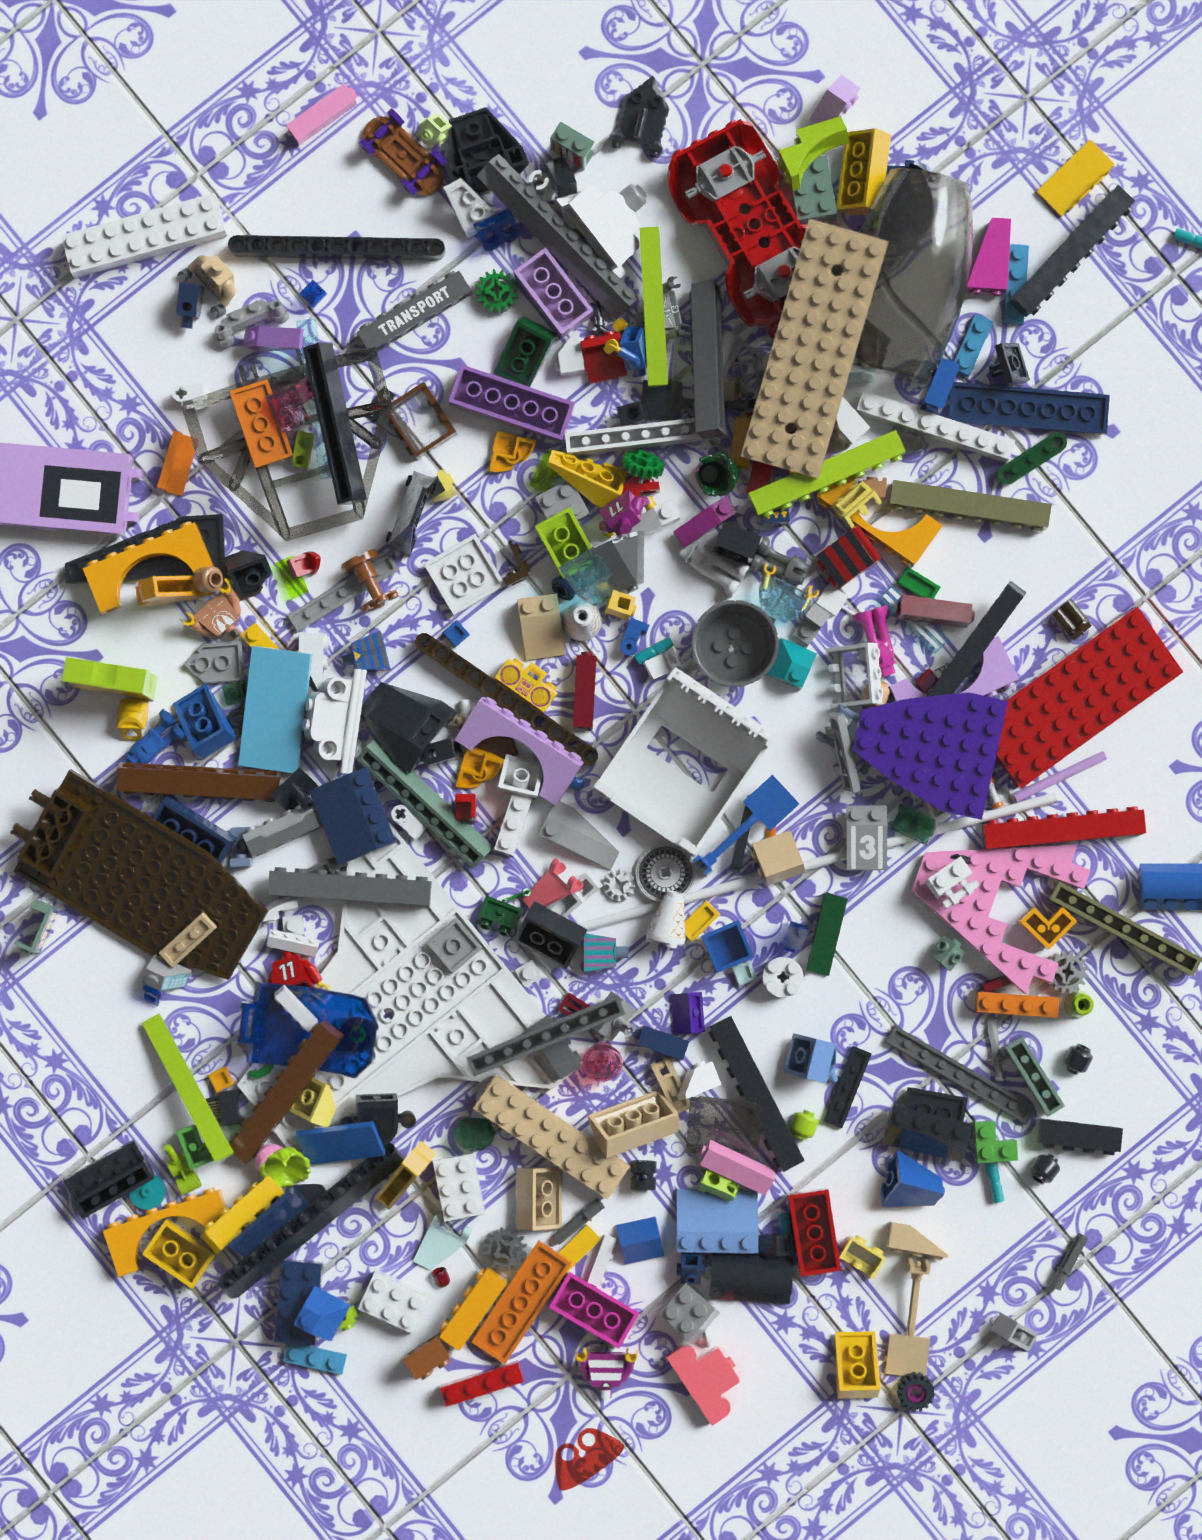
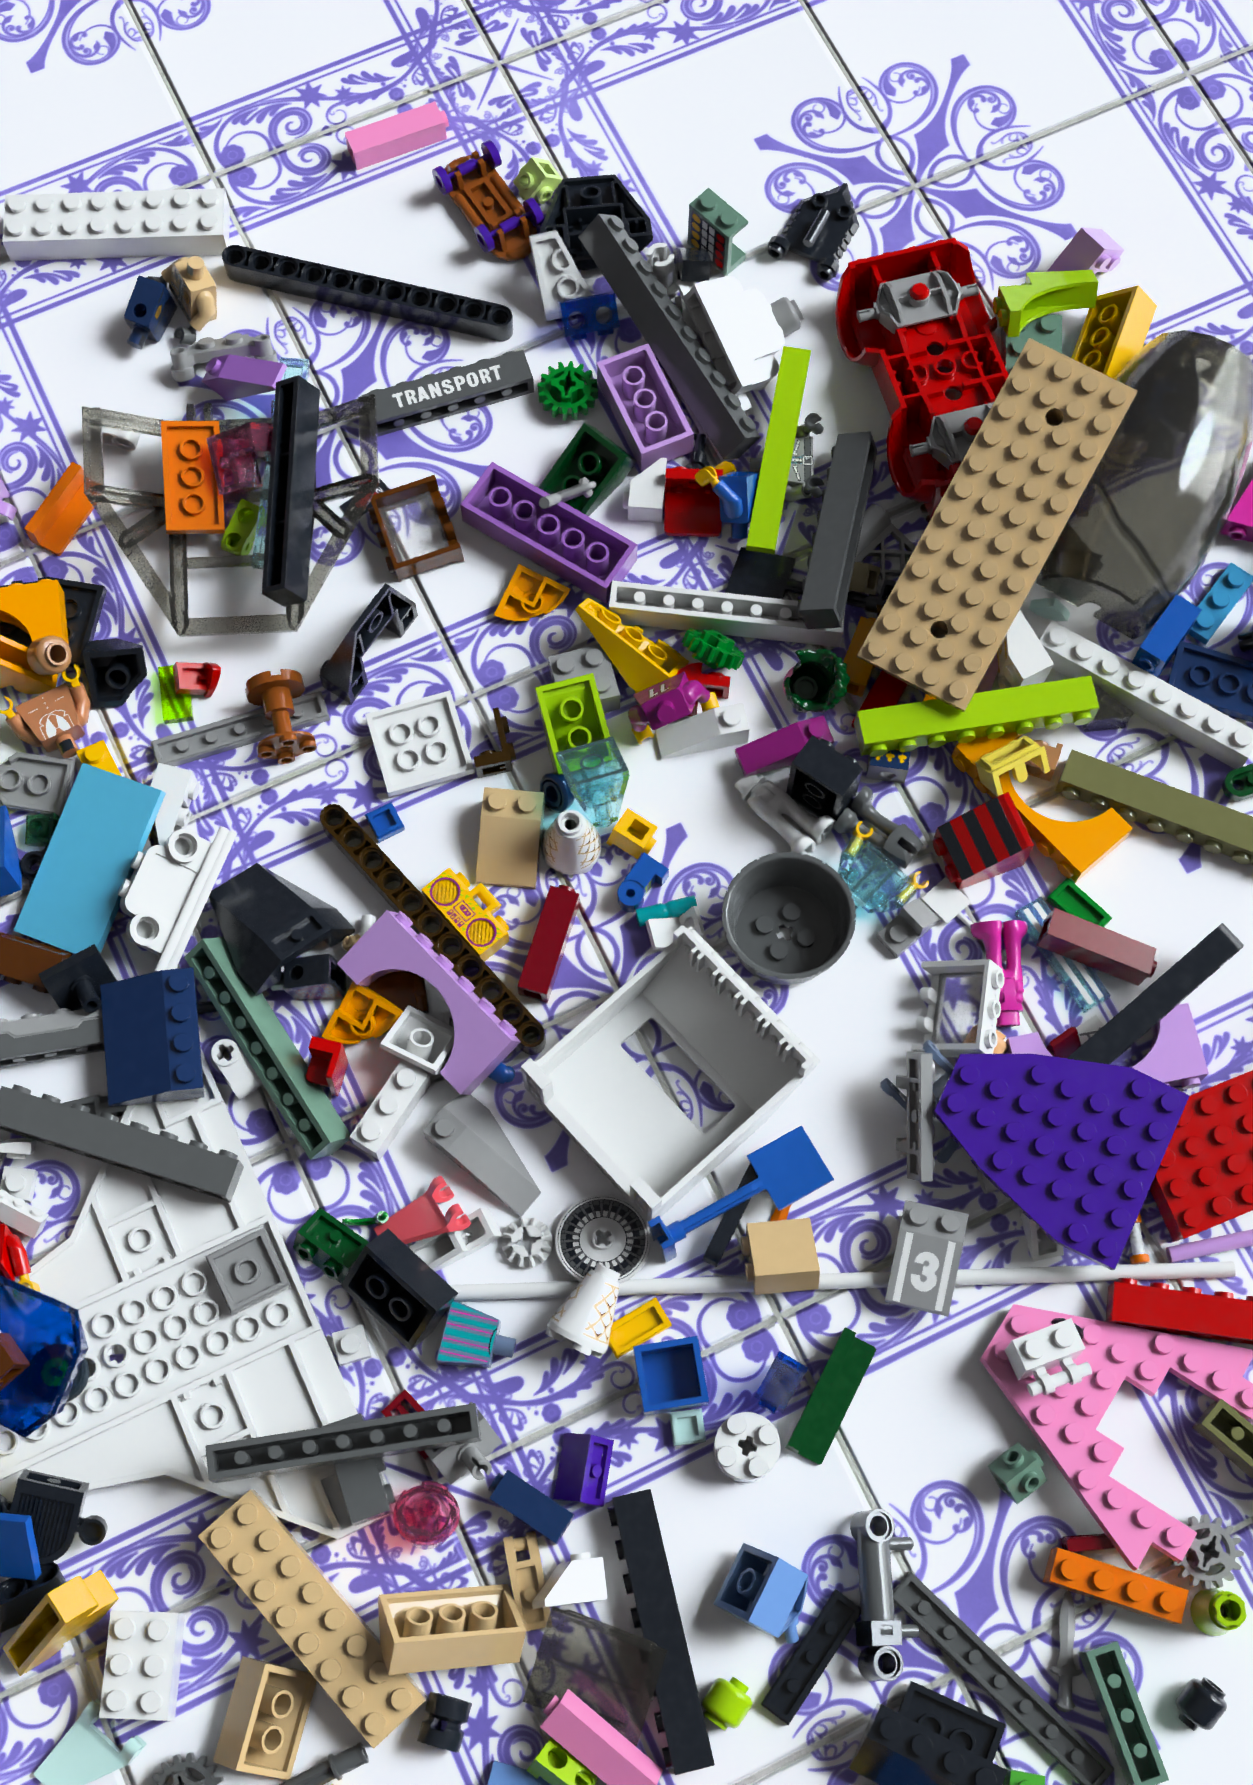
camera: 15 degrees right, 15 degrees down
(313, 293) = (317, 339): clear blue tile -> none
(368, 653) = (251, 816): torso -> none
(446, 481) = (429, 613): light yellow plate -> none
(474, 1127) = (200, 1573): clear green plate -> none
(517, 374) = (583, 488): none -> light grey piece
(544, 475) = (570, 636): clear neon green tile -> none
(625, 410) = (709, 575): black brick -> none
(625, 560) = (655, 770): dark grey slope -> none
(792, 664) = (864, 976): teal slope -> none
(882, 1061) = (878, 1624): none -> dark grey piece
(914, 824) = (1005, 1255): clear green panel -> none
(1049, 930) = (1185, 1476): light orange brick -> none

